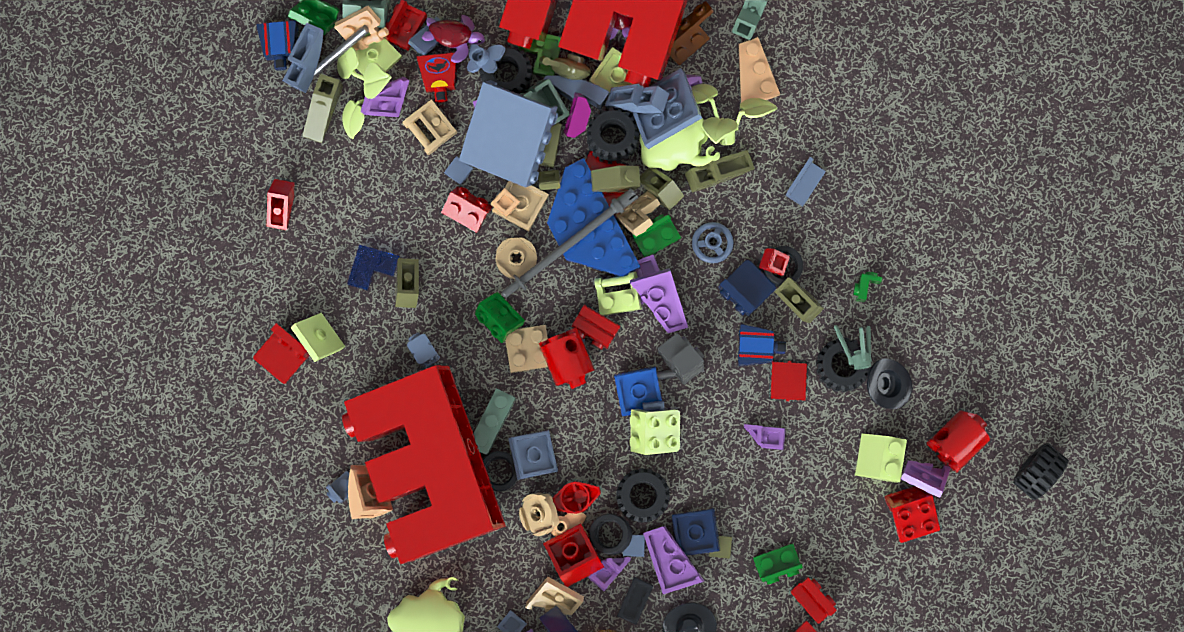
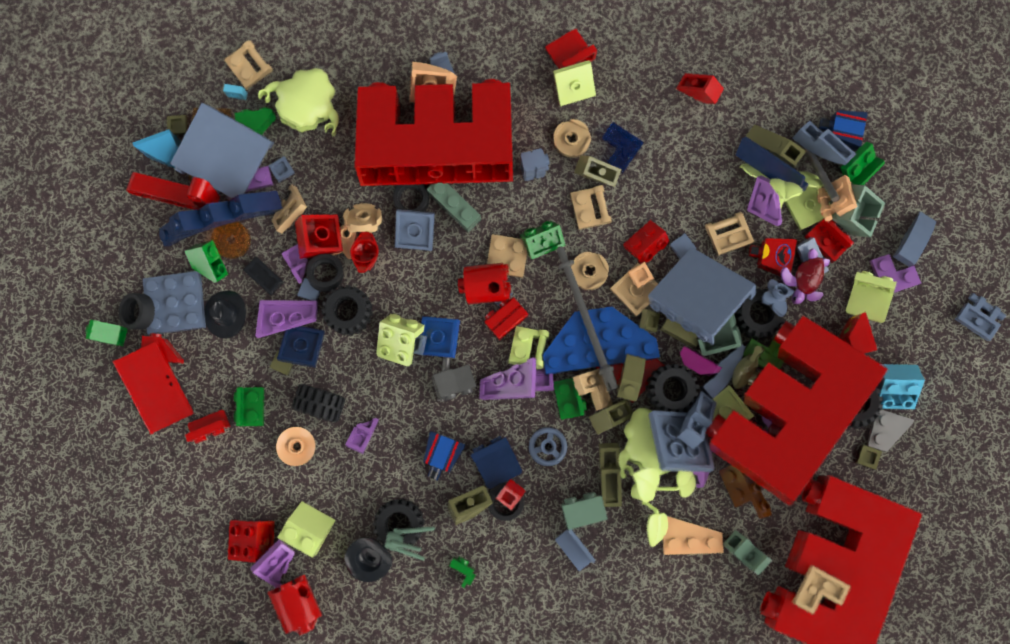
camera: 110 degrees right, 0 degrees up
(347, 106) = (768, 163): none -> dark blue panel
(372, 312) = (570, 128): none -> tan plate
(451, 284) = (584, 208): none -> tan plate
(750, 488) = (318, 403): none -> black tyre
(765, 184) = (583, 511): none -> sand green piece
(788, 381) = (403, 471): red piece -> none
(812, 495) = (286, 443): none -> light nougat dish

